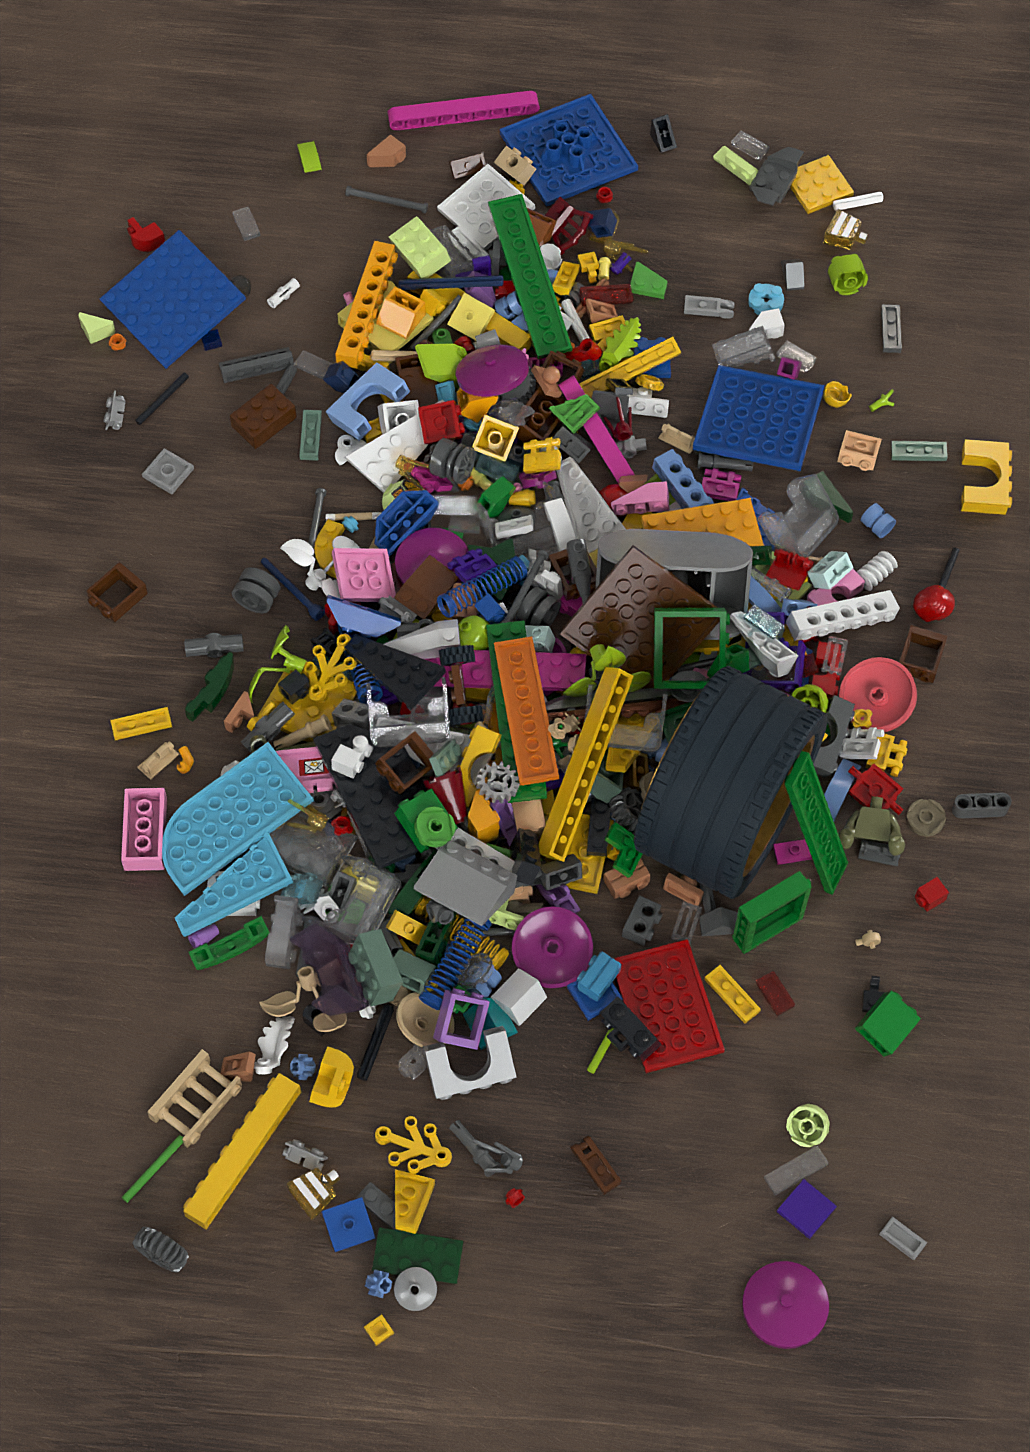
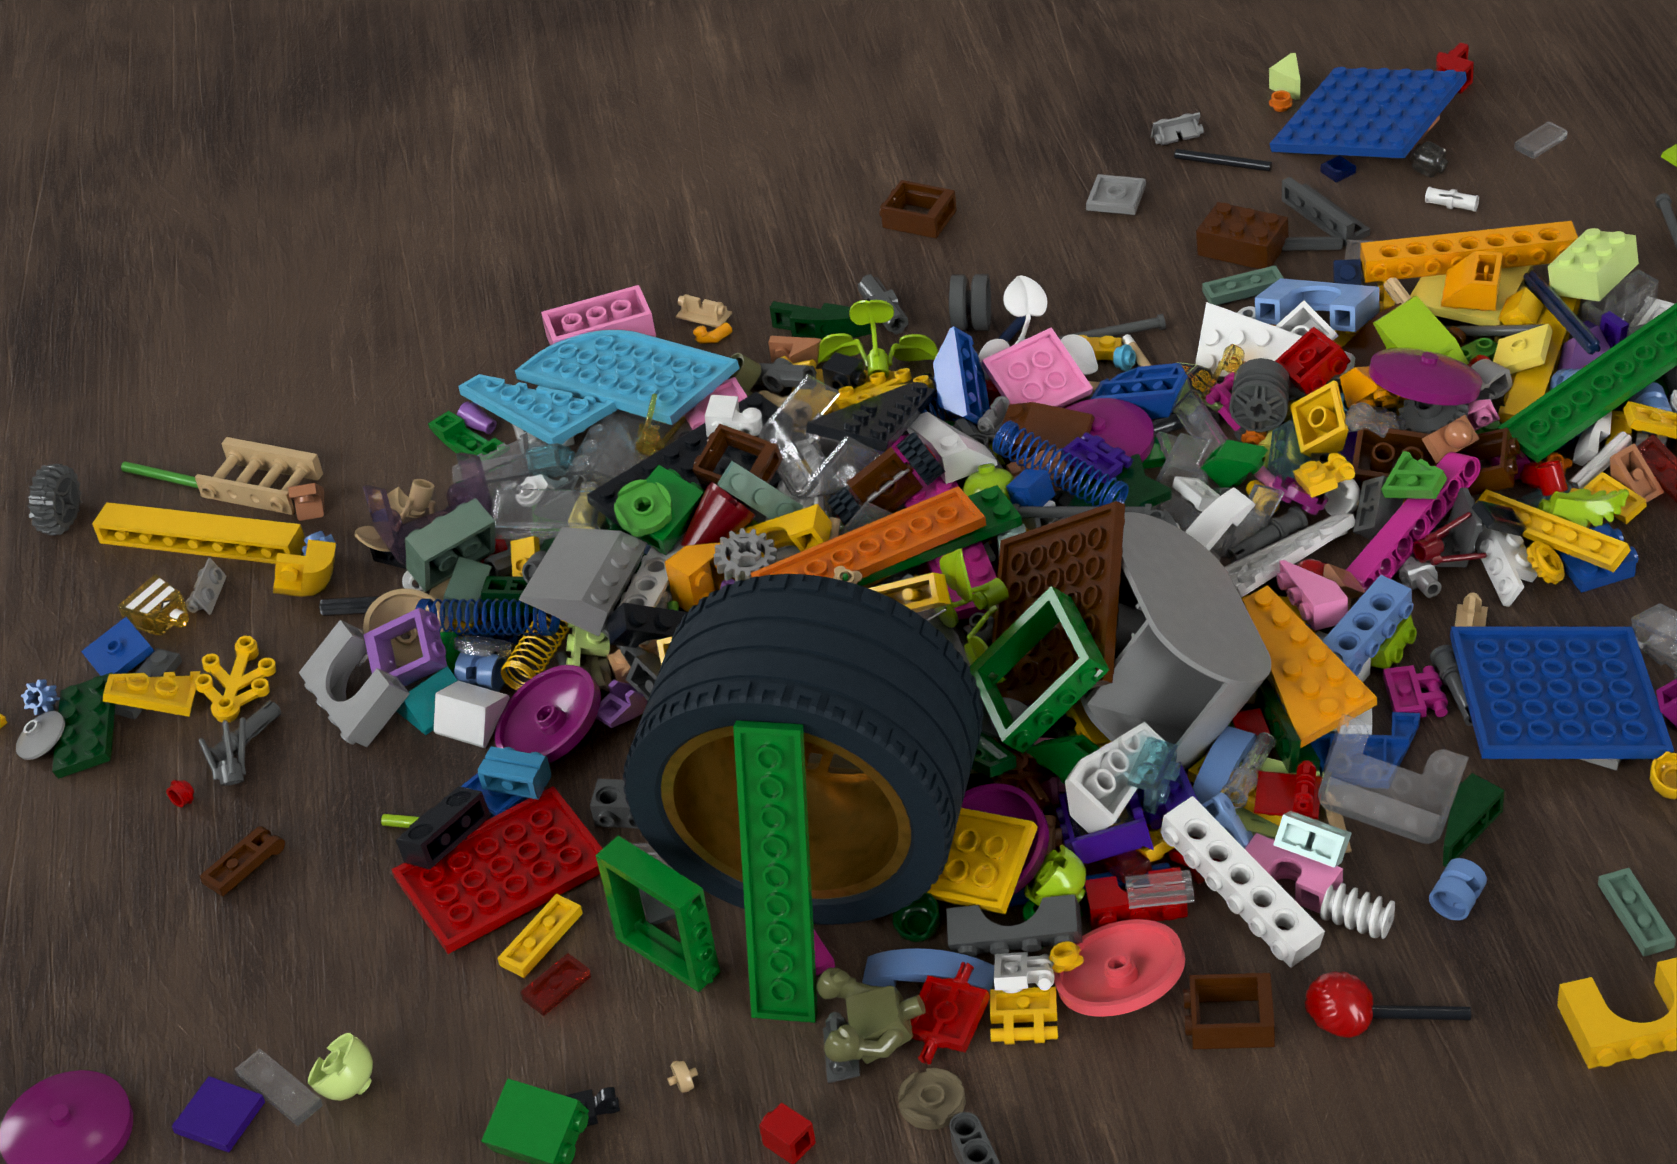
camera: 80 degrees right, 20 degrees down
(141, 723) = (747, 284): yellow plate -> none
(273, 1044) = (314, 516): white plant -> none
(859, 450) = (1582, 832): light nougat plate -> none

